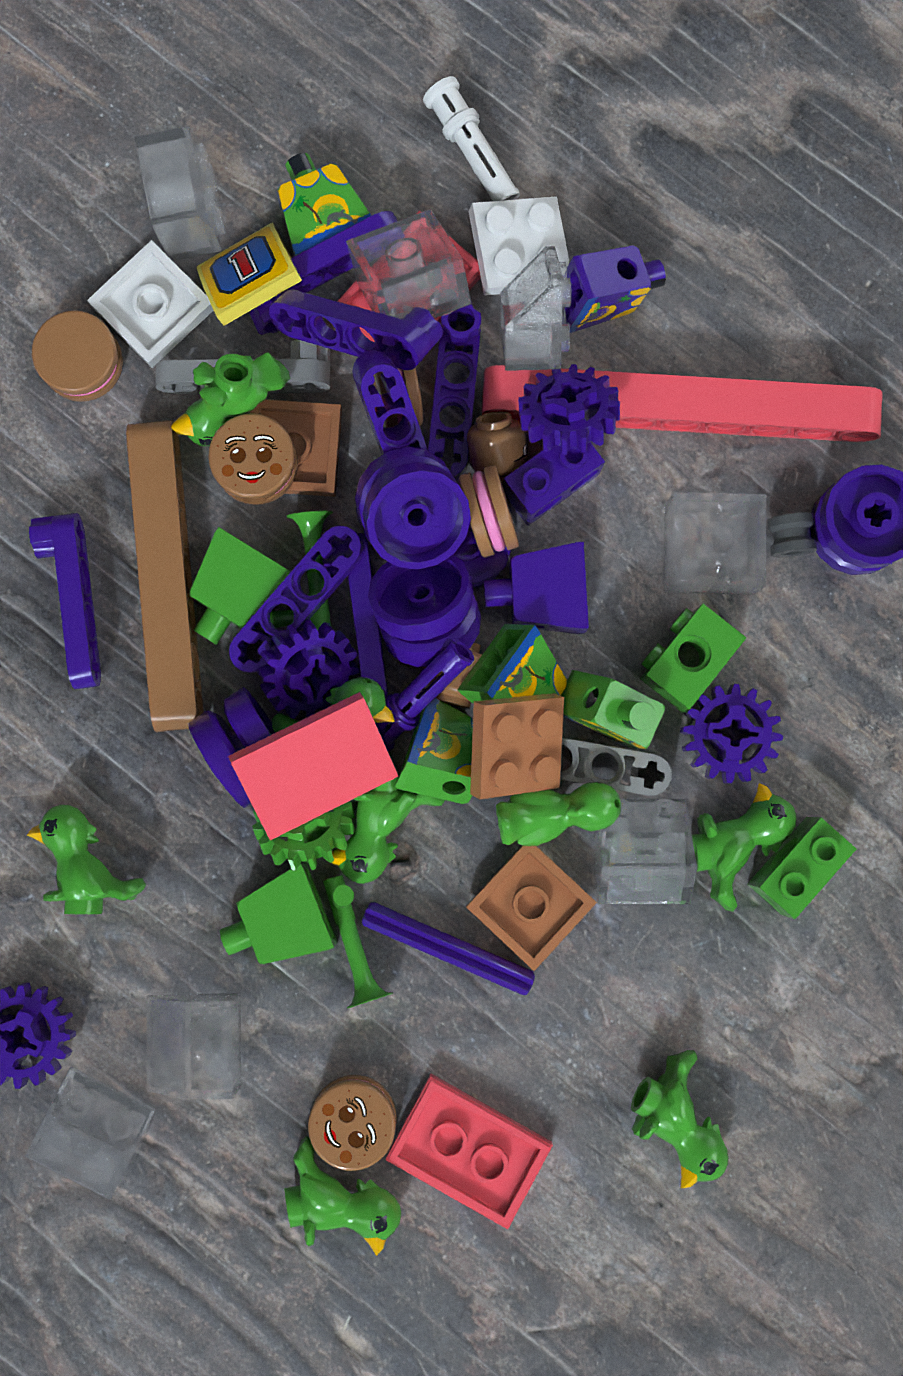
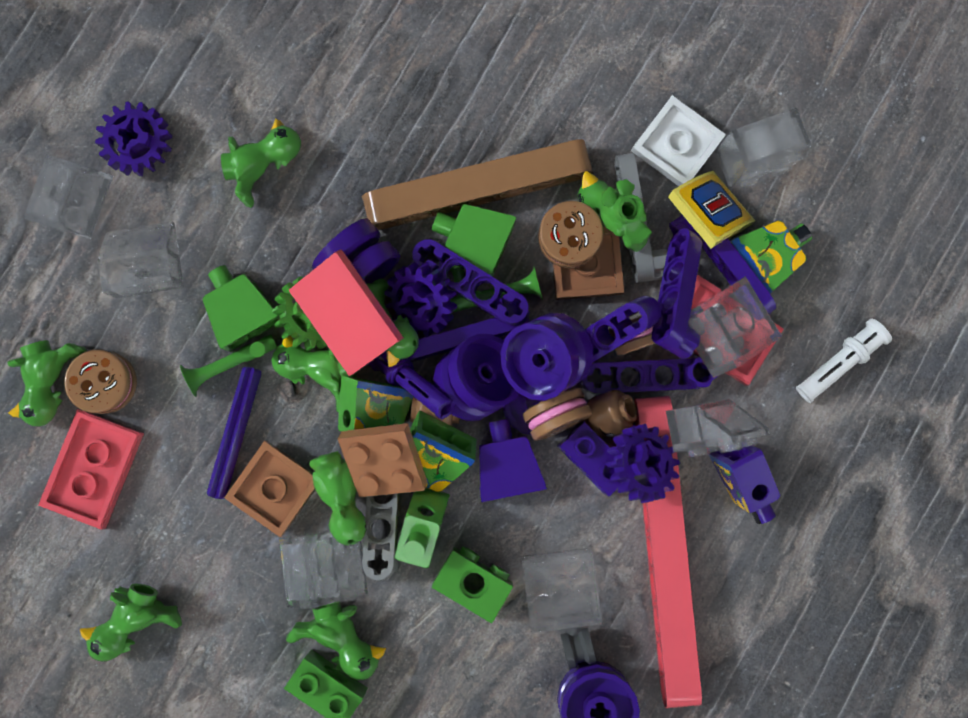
camera: 80 degrees right, 0 degrees up
(66, 541) = (490, 111): dark purple beam -> none
(77, 356) = (630, 95): medium nougat head -> none
(512, 235) = (776, 403): white plate -> none
(732, 713) = (404, 623): dark purple gear -> none

